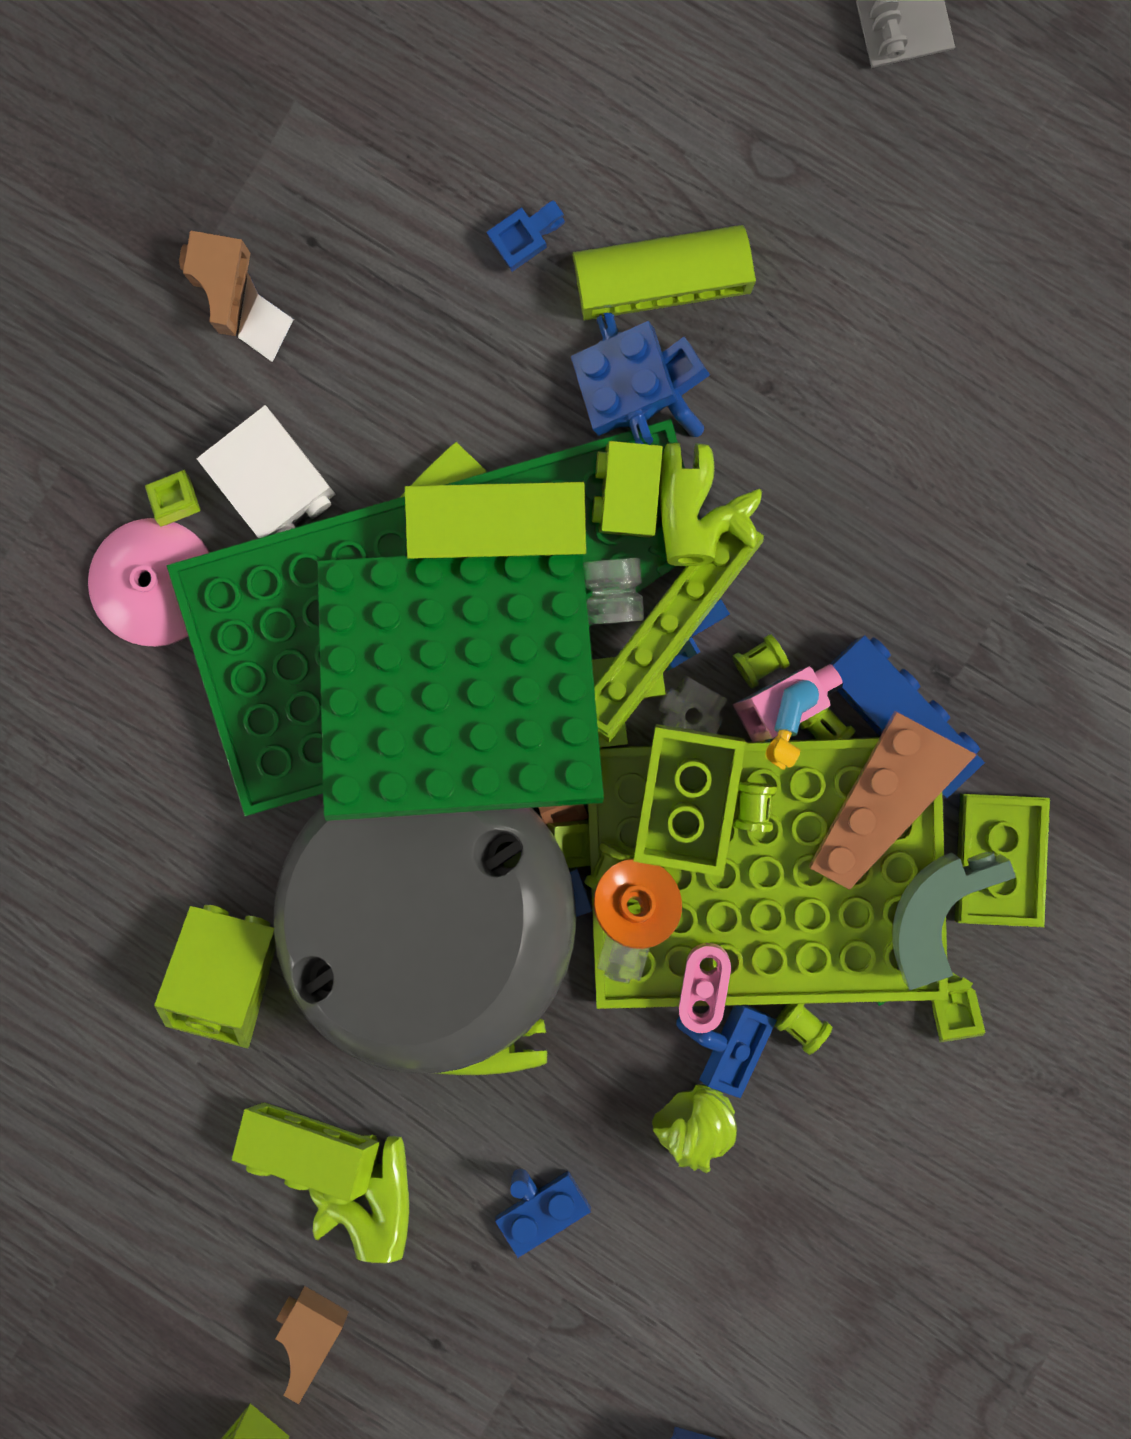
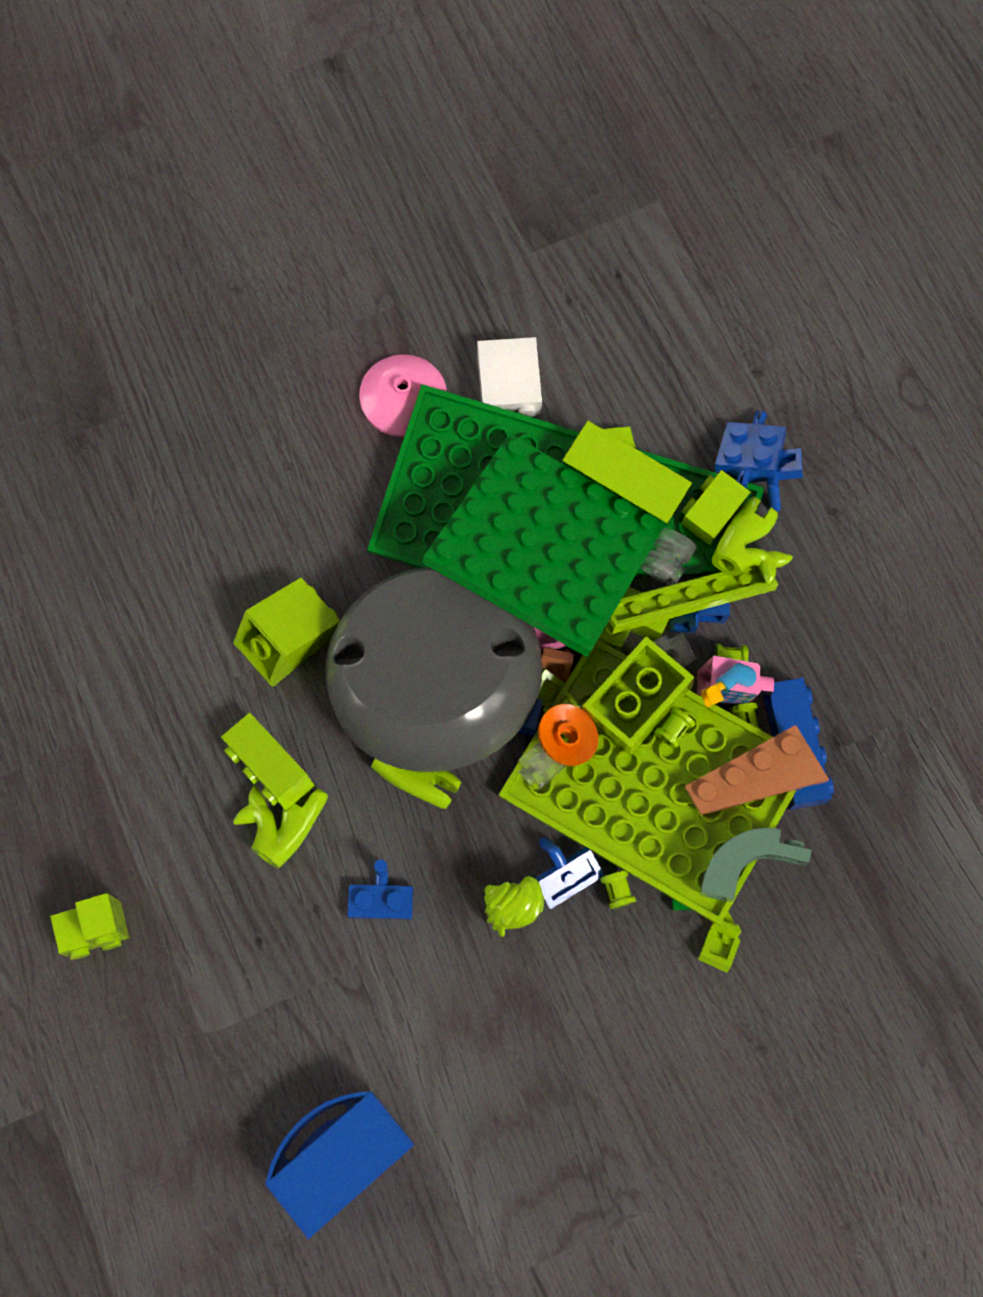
camera: 25 degrees right, 15 degrees down
(172, 498) = (447, 357): lime tile -> none
(221, 269) = (557, 256): medium nougat arch -> none
(262, 323) = (562, 299): white sticker -> none
(308, 1334) = (189, 878): medium nougat arch -> none
(520, 236) = (740, 342): blue plate -> none
(664, 272) = (811, 411): lime brick -> none
(704, 986) = (573, 819): bright pink plate -> none
(1019, 832) = (804, 890): lime tile -> none

